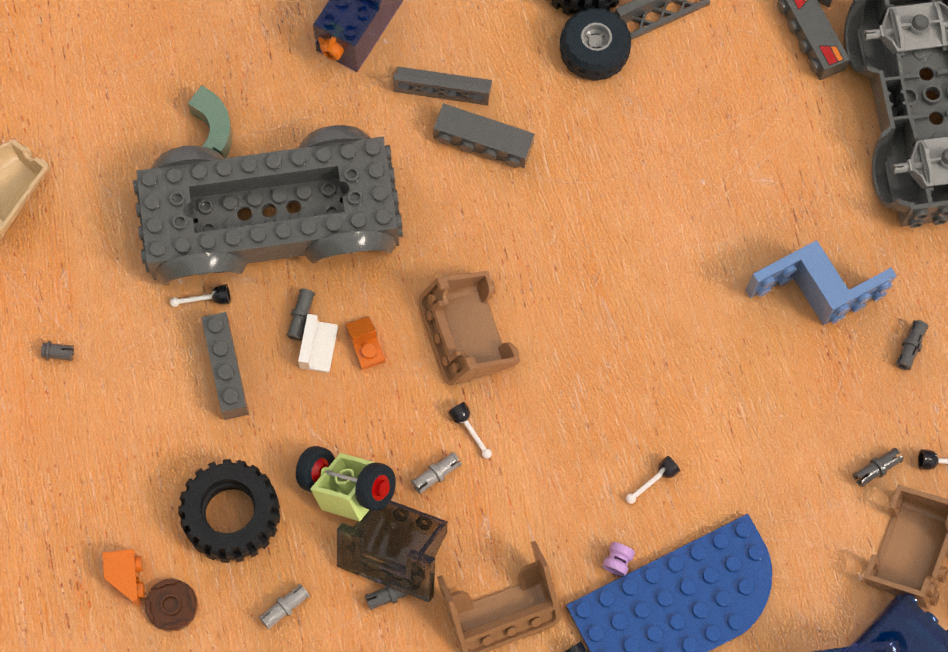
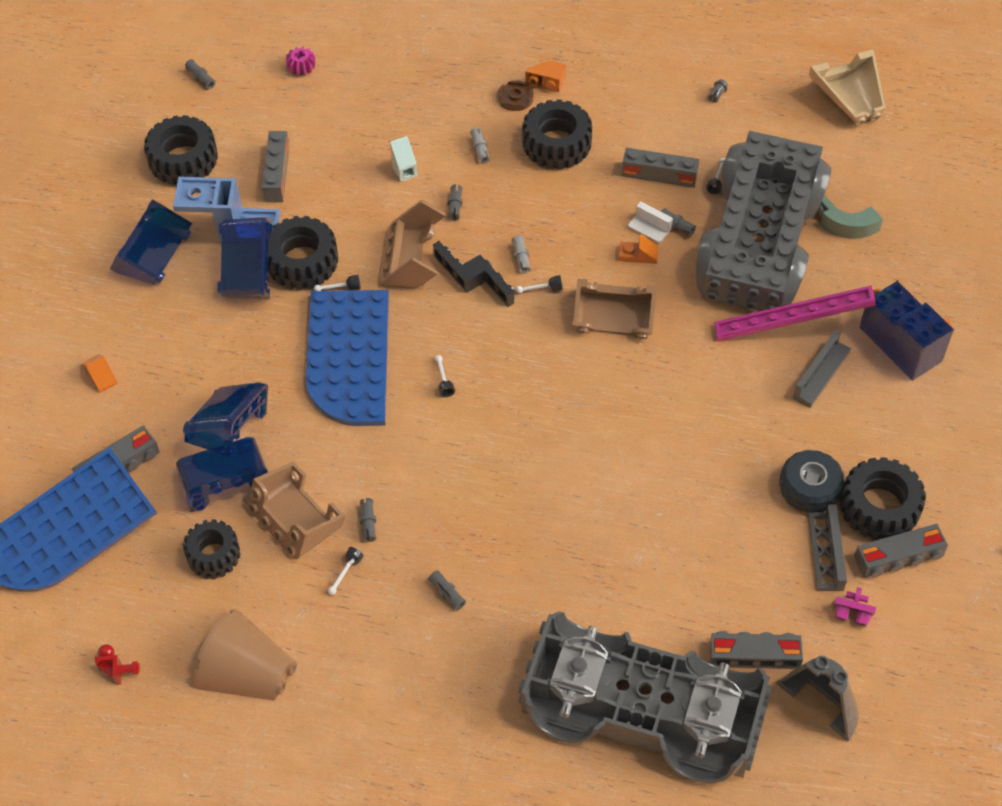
camera: 120 degrees right, 15 degrees down
(345, 483) = (540, 192): brick -> none
(393, 548) = (484, 206): clear smoke windscreen -> none
(395, 125) = (795, 313): none -> dark pink tile
(483, 136) = (764, 378): dark grey brick -> none
(493, 513) = (474, 273): none -> black bracket
(618, 559) = (400, 329): lavender wheel -> none
(820, 283) = (527, 540): medium blue bracket -> none

